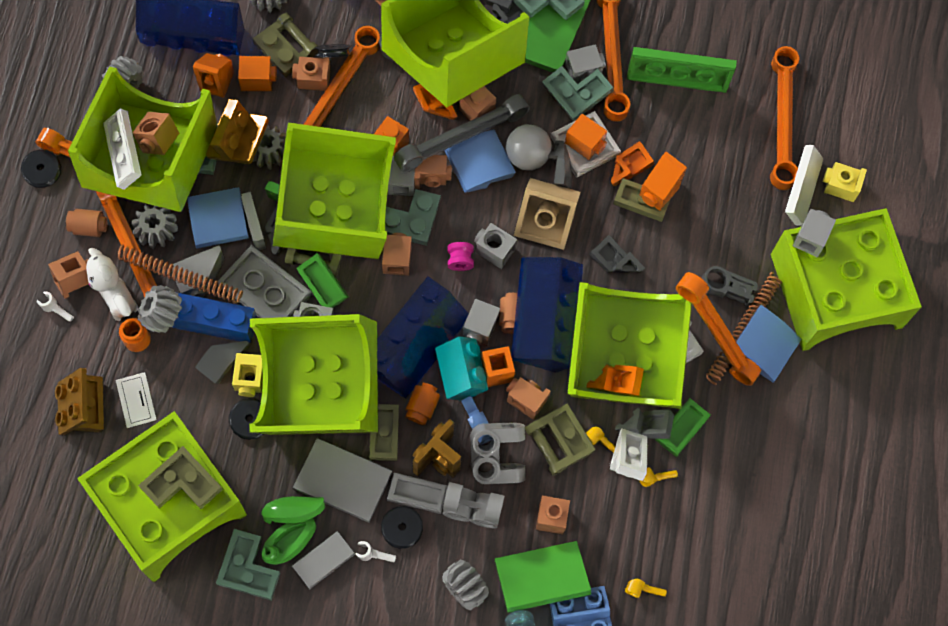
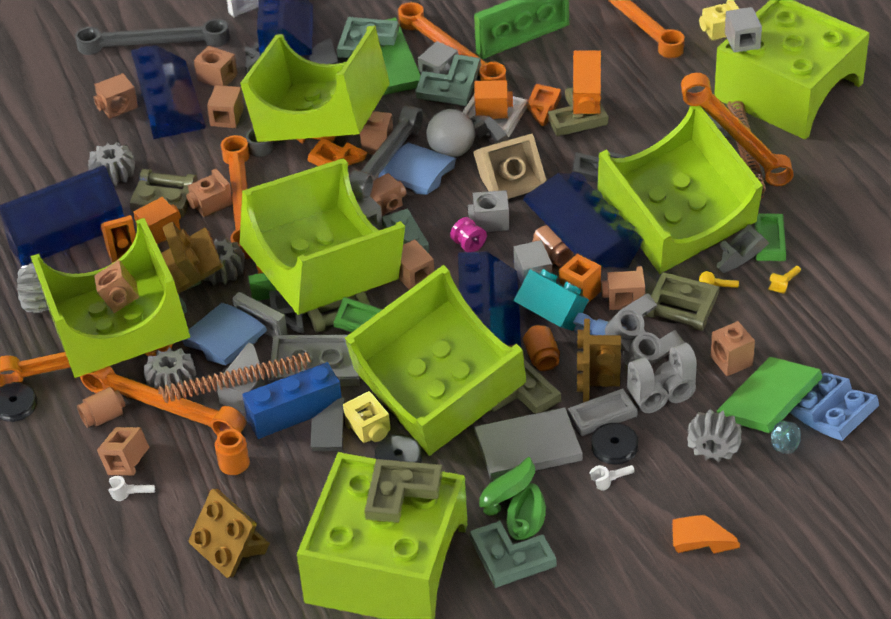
camera: 30 degrees left, 25 degrees down
(104, 278) = (163, 423): white animal -> none
(122, 149) = (98, 308): white tile -> none
(136, 400) = (276, 509): white sticker -> none
(159, 309) = (243, 405): light grey gear -> none
(323, 560) = (571, 508): light grey tile -> none
(333, 50) = (218, 162): black piece -> none
(619, 380) = (692, 218): orange slope -> none
(630, 455) = (751, 274): white slope -> none
(636, 586) = (852, 355): yellow hand -> none
(768, 342) = (778, 138): medium blue slope -> none
(804, 184) = (693, 38): white tile -> none

